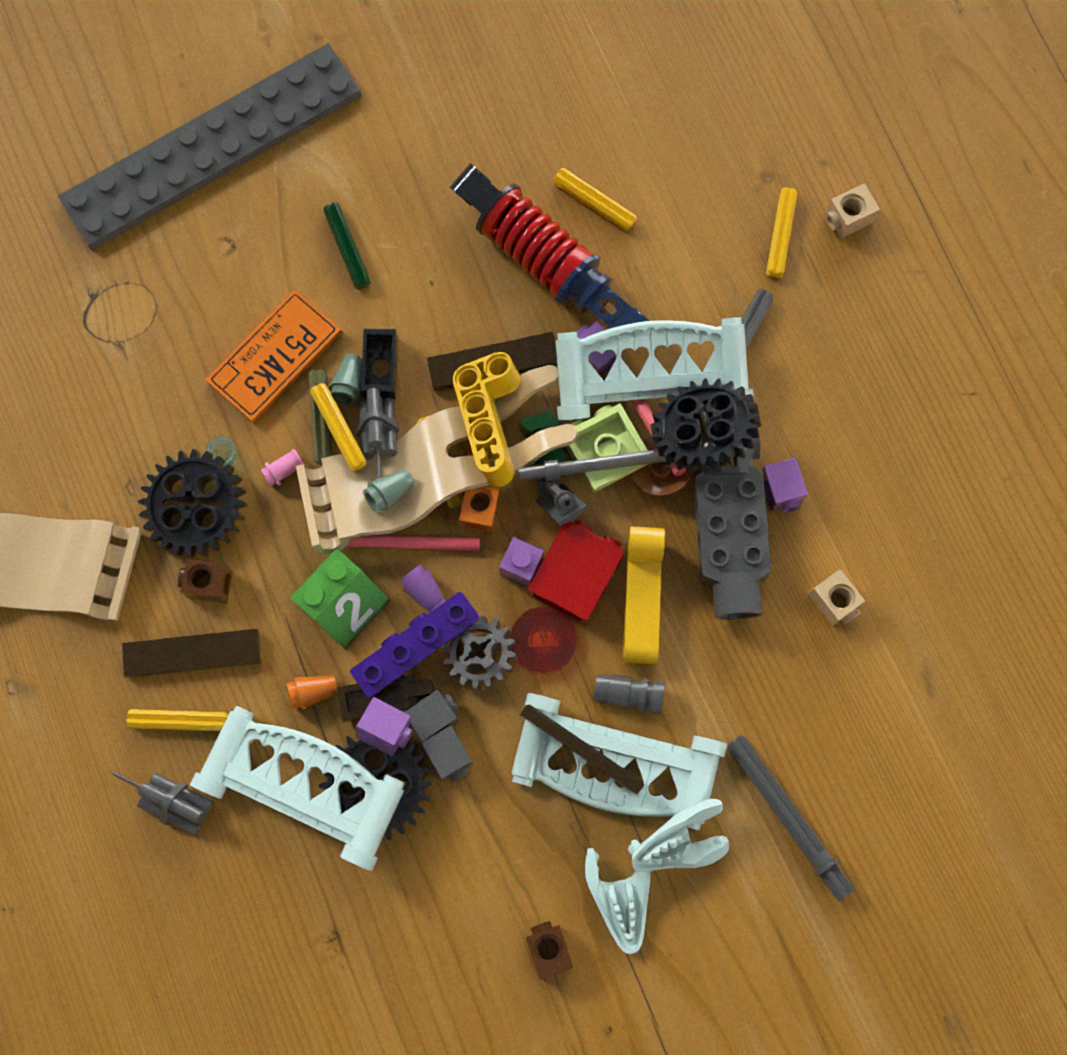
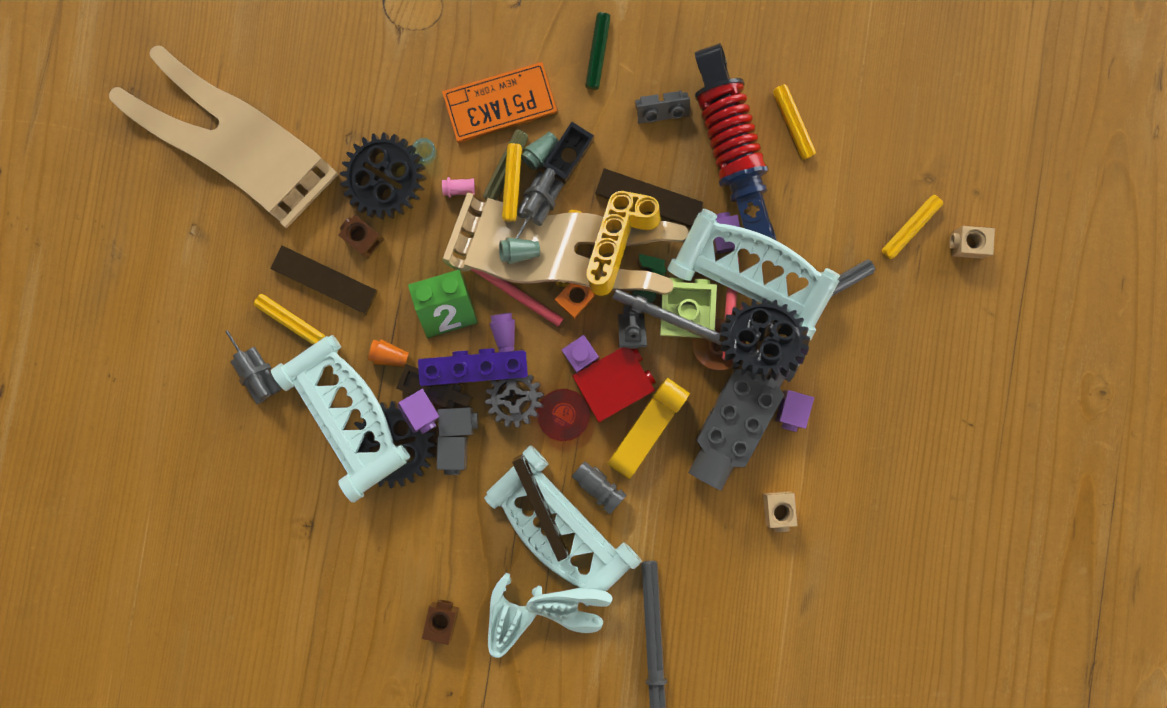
camera: 35 degrees right, 10 degrees up
(458, 256) = (673, 107): none -> dark grey hinge

